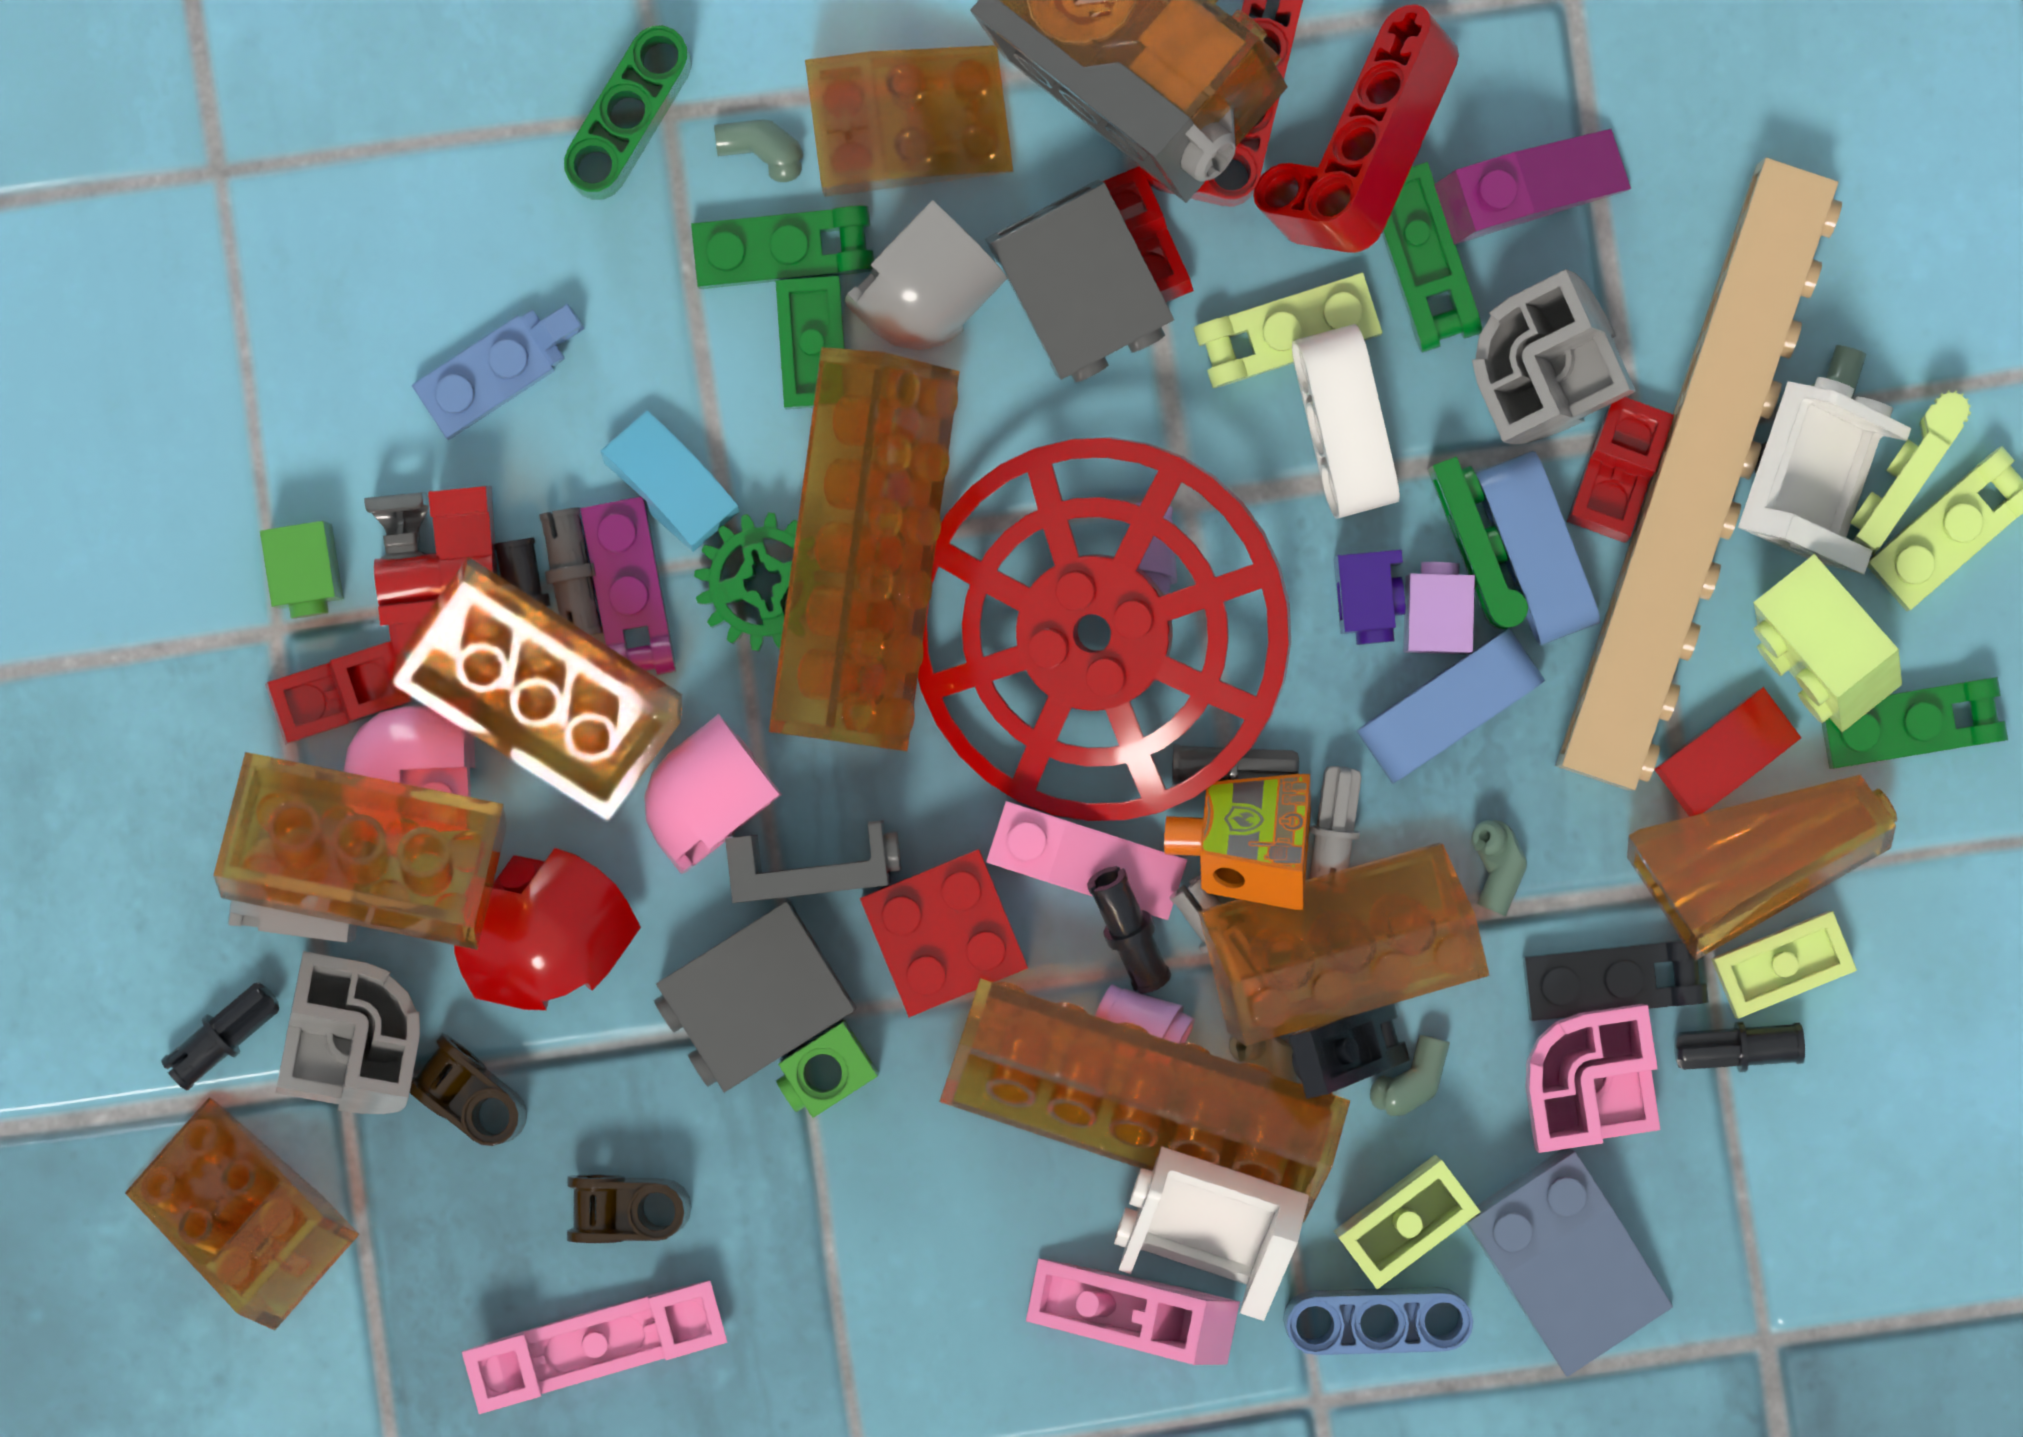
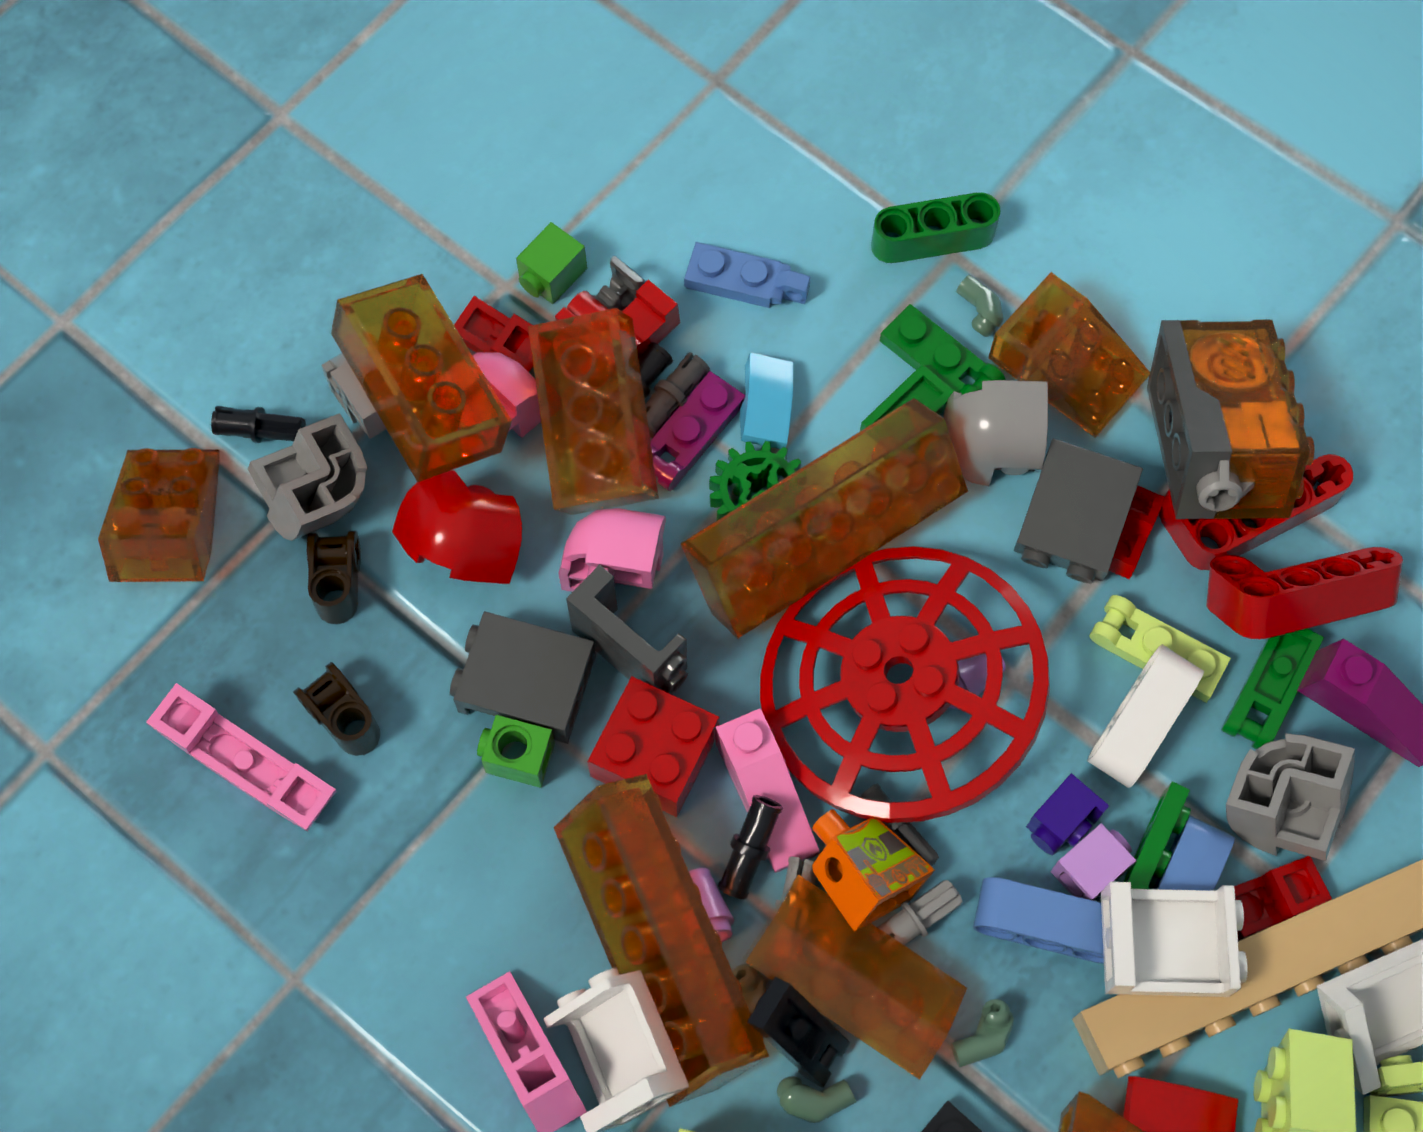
camera: 50 degrees right, 20 degrees down
(1578, 622) = (1172, 941): none -> white panel

